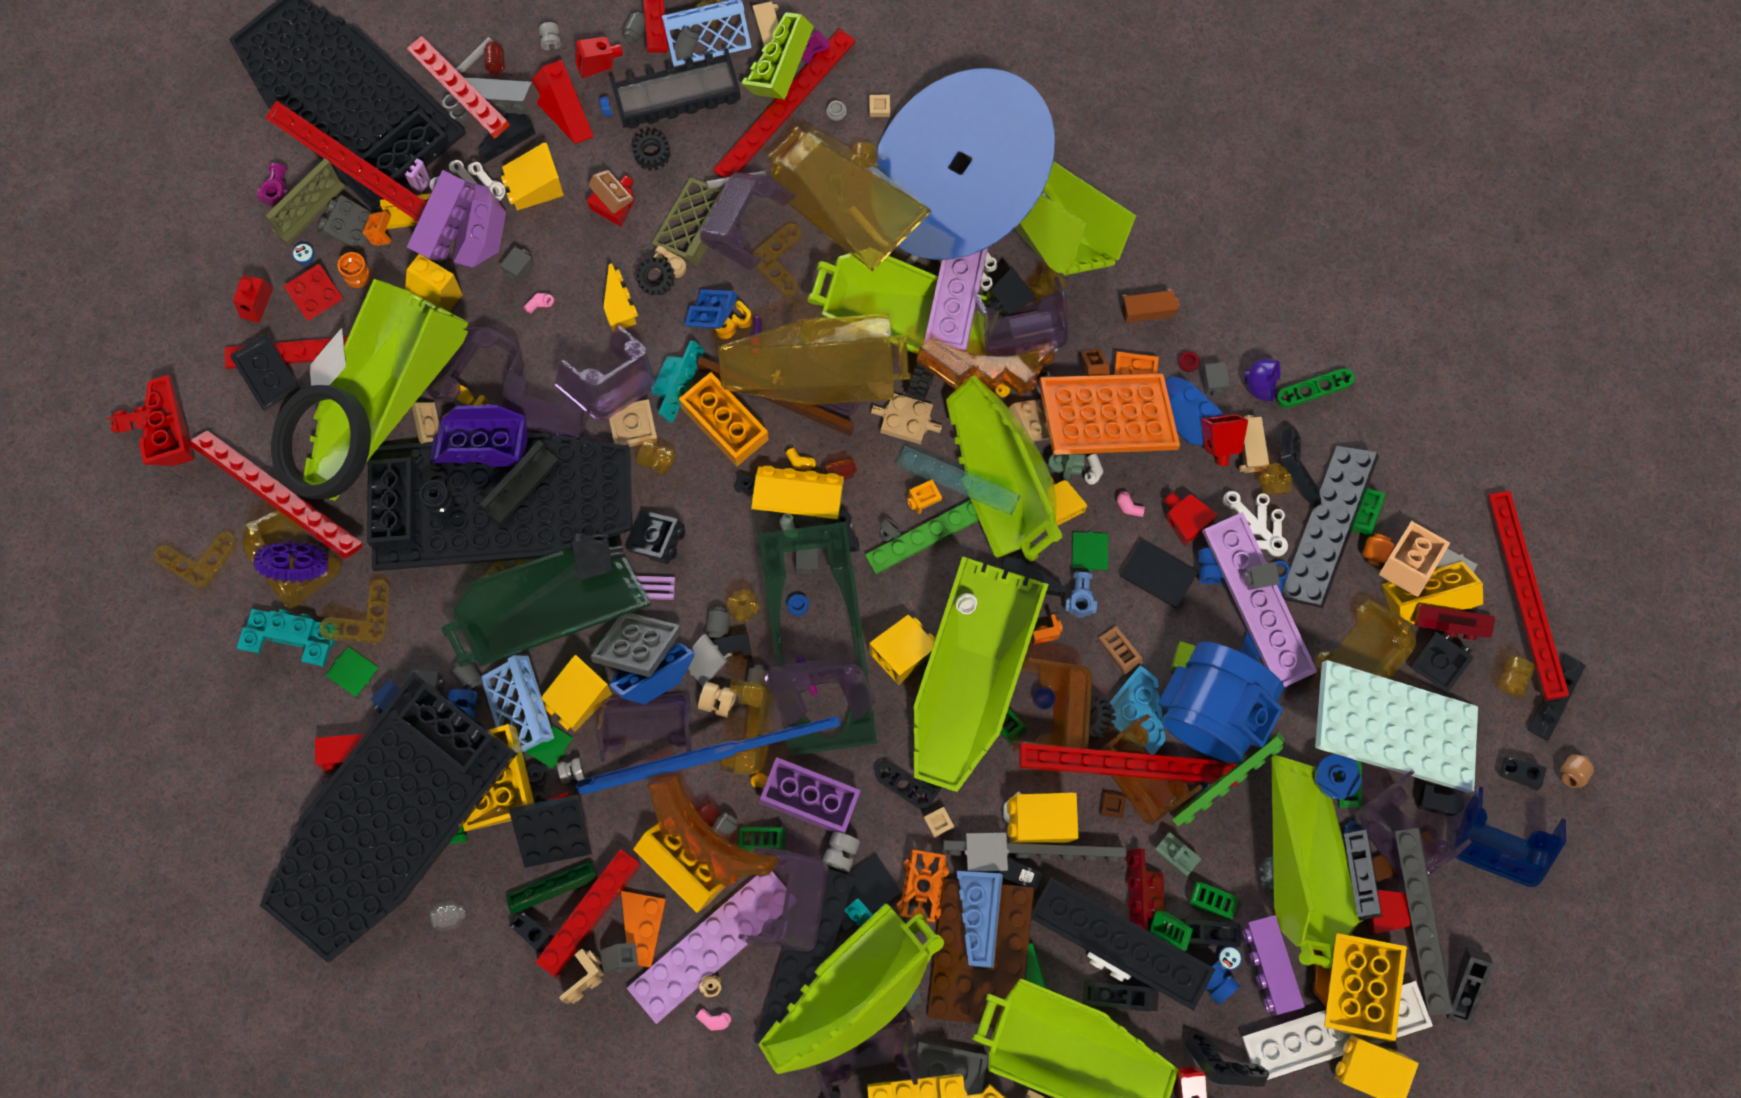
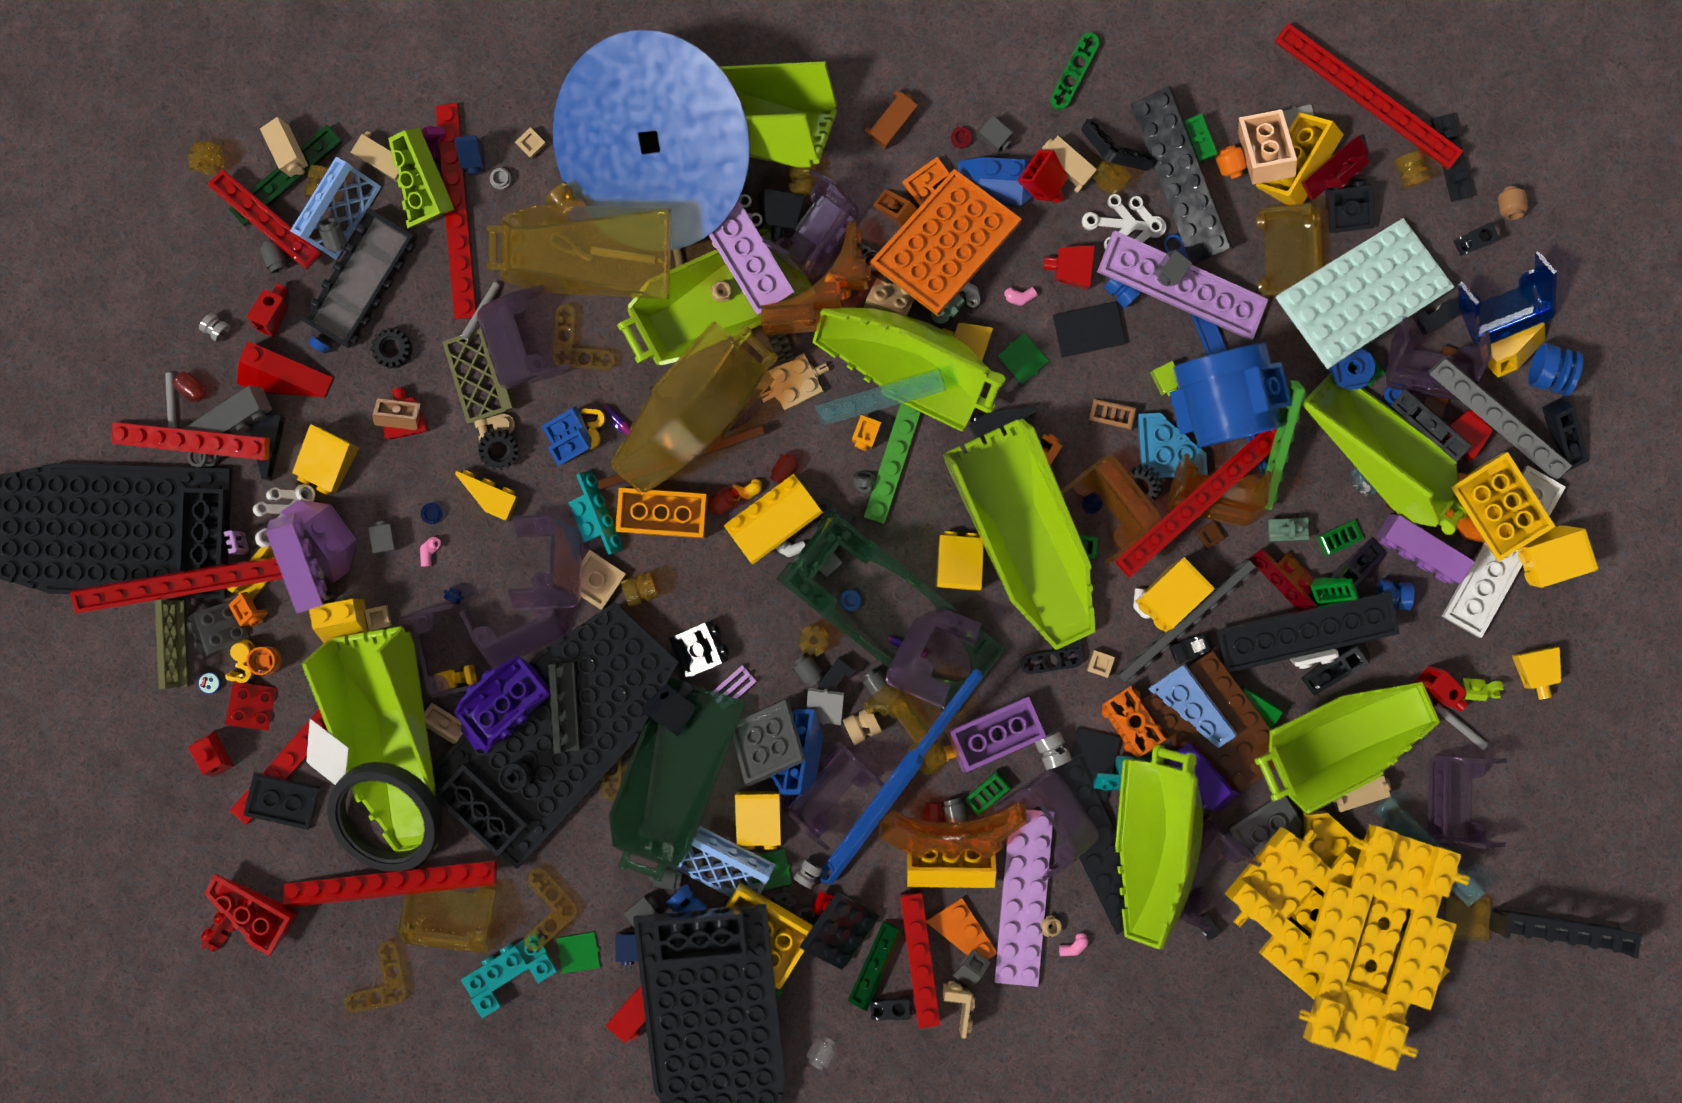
camera: 45 degrees left, 15 degrees up
(273, 185) = (129, 651): magenta connector -> none
(275, 561) = (445, 935): dark purple gear -> none
(342, 246) = (239, 653): none -> yellow leg
(460, 310) = (378, 618): none -> tan plate
(524, 345) = (453, 595): none -> clear blue plate
(566, 279) = (431, 513): none -> clear blue plate
(740, 487) = (723, 551): black plate -> none
(775, 451) = (723, 501): none -> clear red brick
(831, 75) = (470, 154): none -> dark blue slope
(916, 306) = (724, 287): none -> tan plate
(934, 989) = (1213, 788): none -> dark purple wedge
(966, 603) = (976, 488): white plate -> none
(986, 852) = (1156, 655): light grey piece -> none
(1081, 594) = (1047, 398): medium blue connector -> none
(1223, 1072) = (1452, 659): black beam -> none
(1229, 958) = (1386, 569): tile -> none
(1263, 379) = (1031, 102): dark purple cylinder -> none
(1482, 882) = (1515, 350): none -> yellow slope
(1502, 924) = (1555, 369): none -> blue wheel

